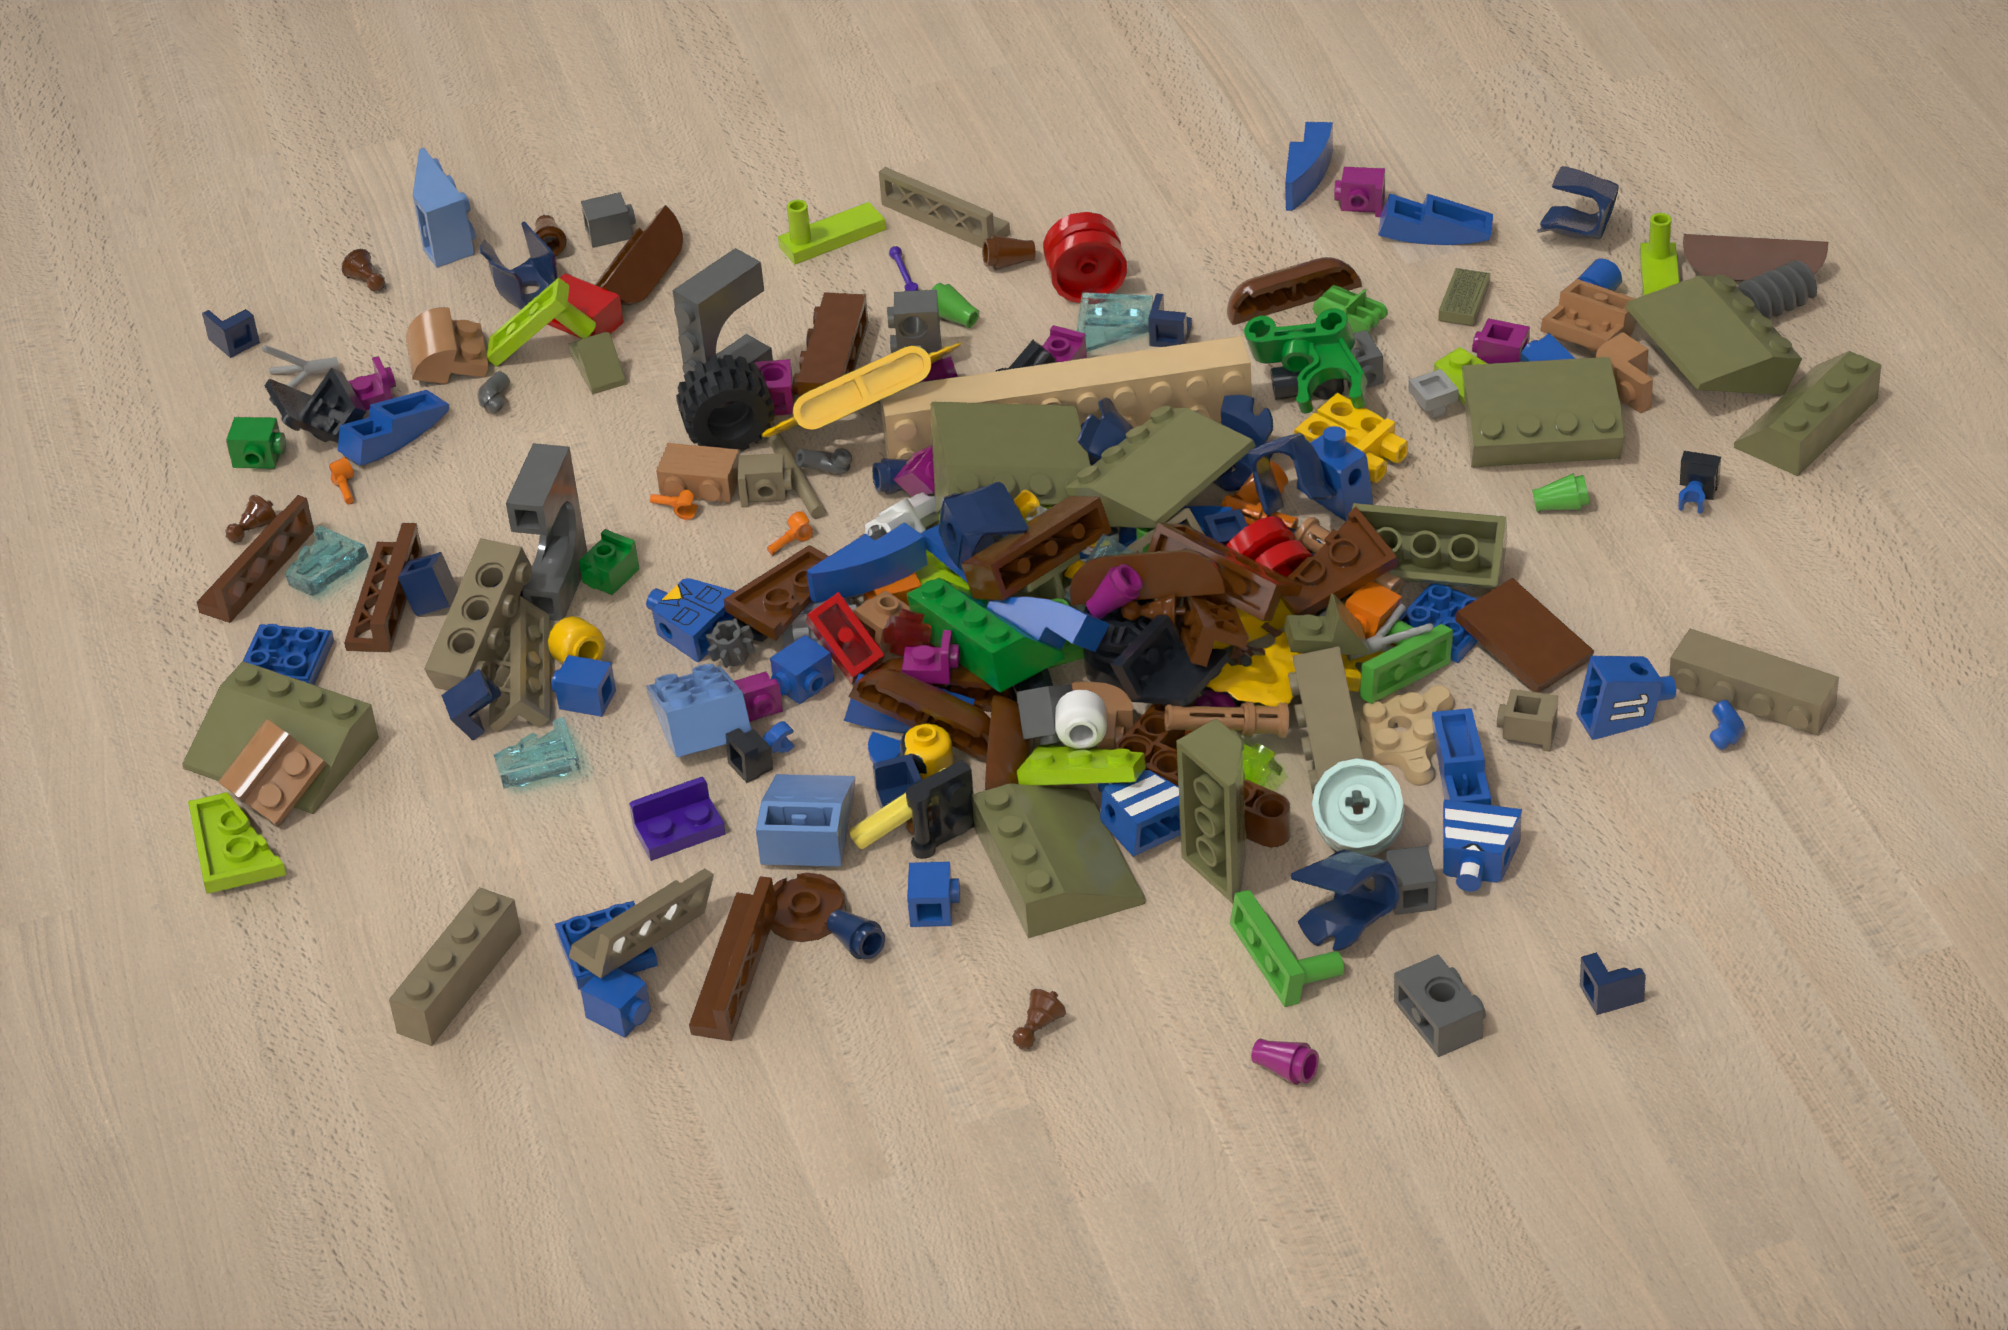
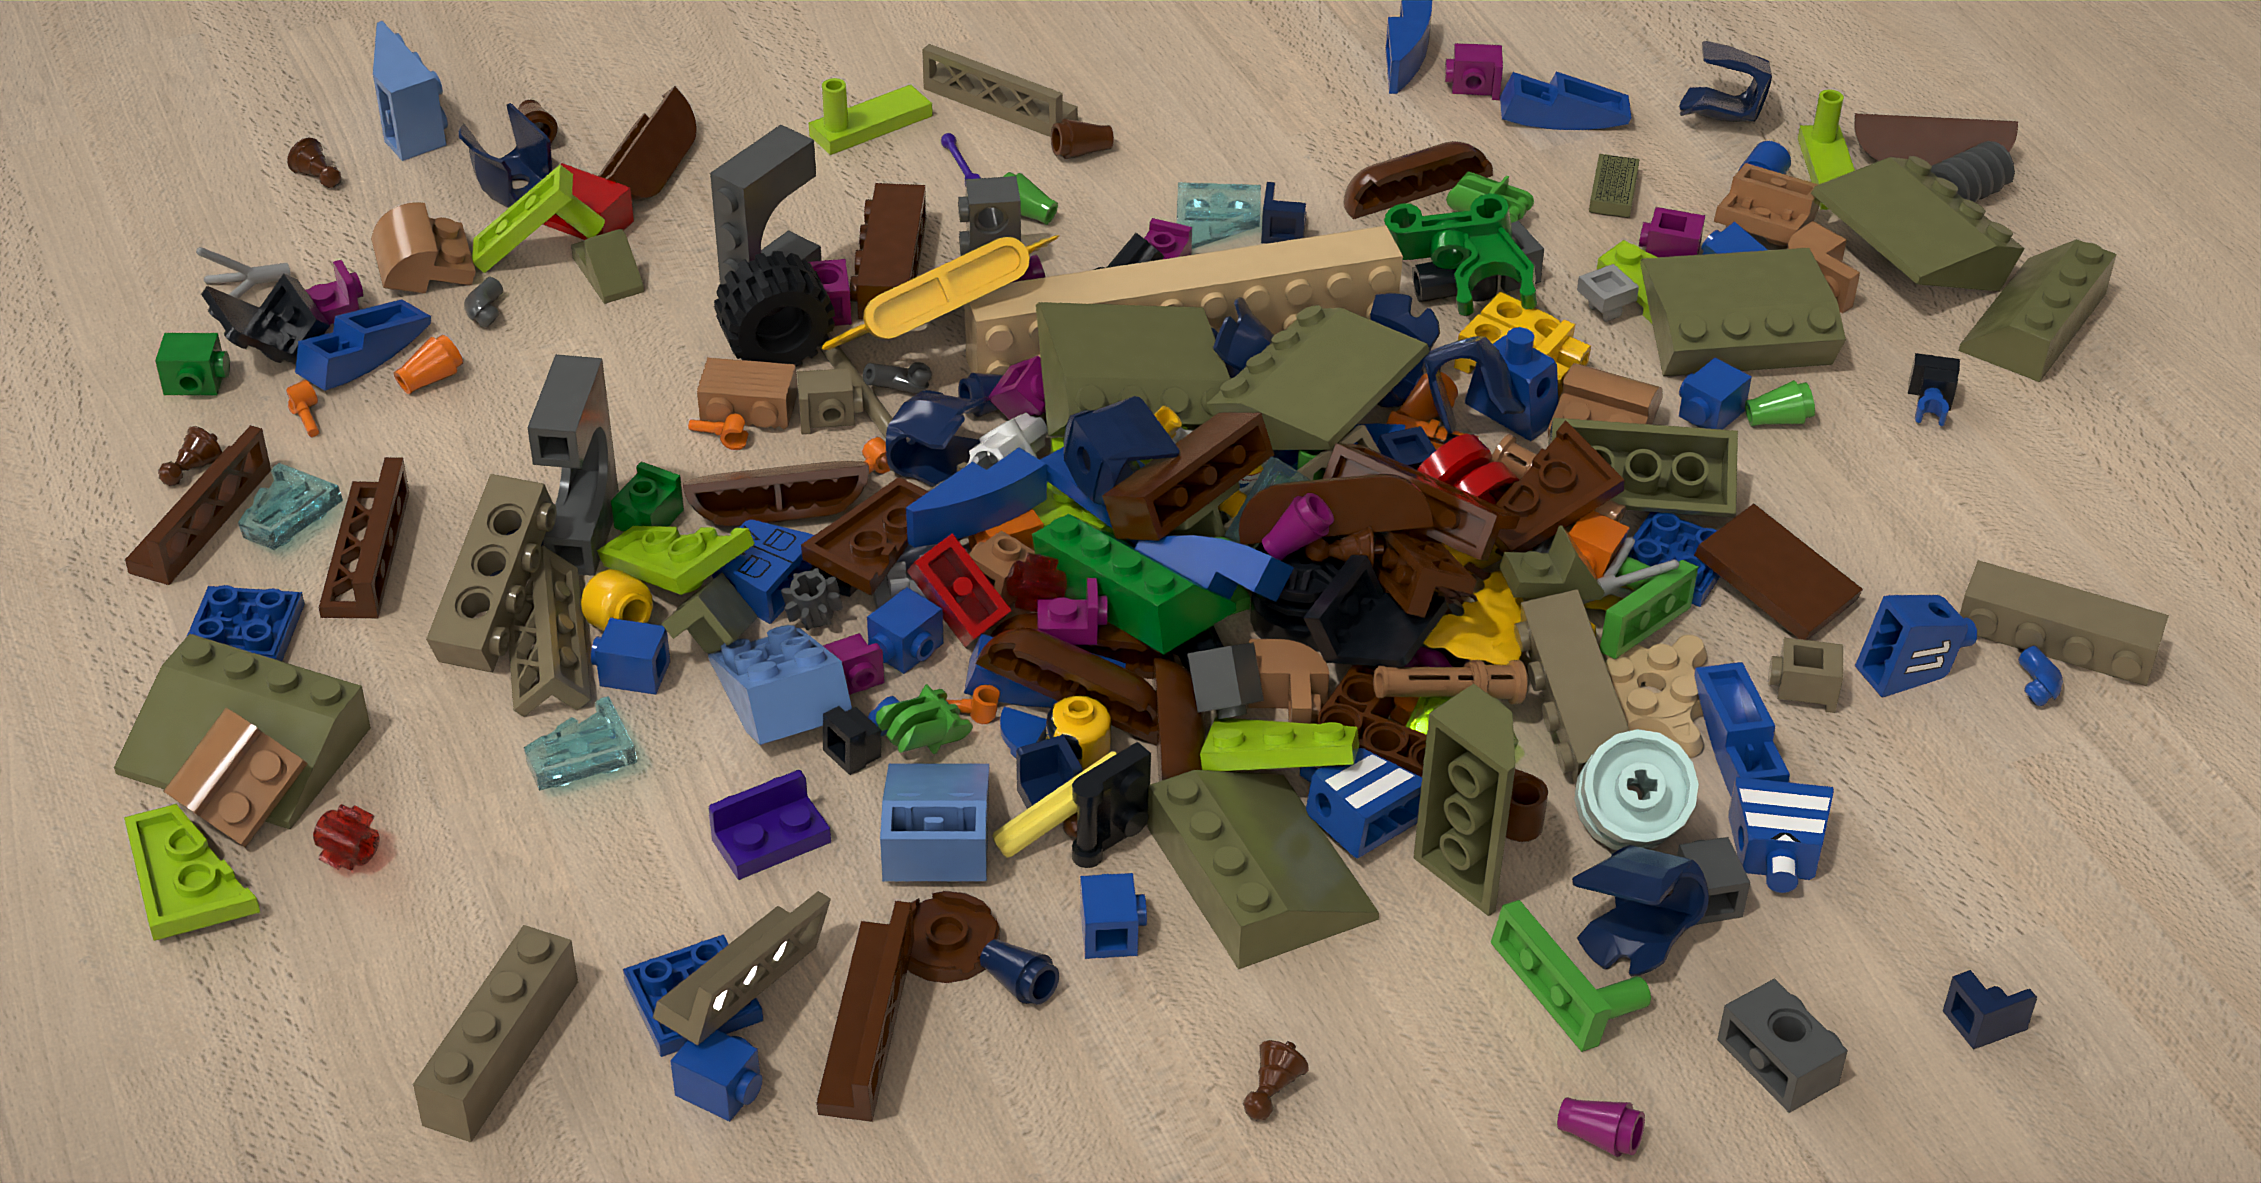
camera: 10 degrees left, 0 degrees up
(233, 333) = (157, 236): dark blue panel -> none
(353, 820) = (346, 837): none -> clear red gear
(428, 584) = (422, 532): dark blue panel -> none
(446, 444) = (429, 364): none -> orange cone
(467, 699) = (484, 676): dark blue panel -> none
(607, 219) = (604, 104): dark grey brick -> none
(621, 608) = (672, 559): none -> lime wing
(650, 654) = (712, 615): none -> olive panel
(713, 555) = (777, 492): none -> reddish brown brick
(806, 742) = (923, 721): none -> bright green arm
(840, 502) = (930, 423): none -> dark blue piece
(855, 731) = (982, 705): none -> orange hand
(1081, 719) = (1273, 686): white head -> none
(1084, 256) = (1176, 140): red wheel -> none
(1412, 486) = (1606, 397): none -> medium nougat brick
(1506, 485) = (1714, 395): none -> blue brick

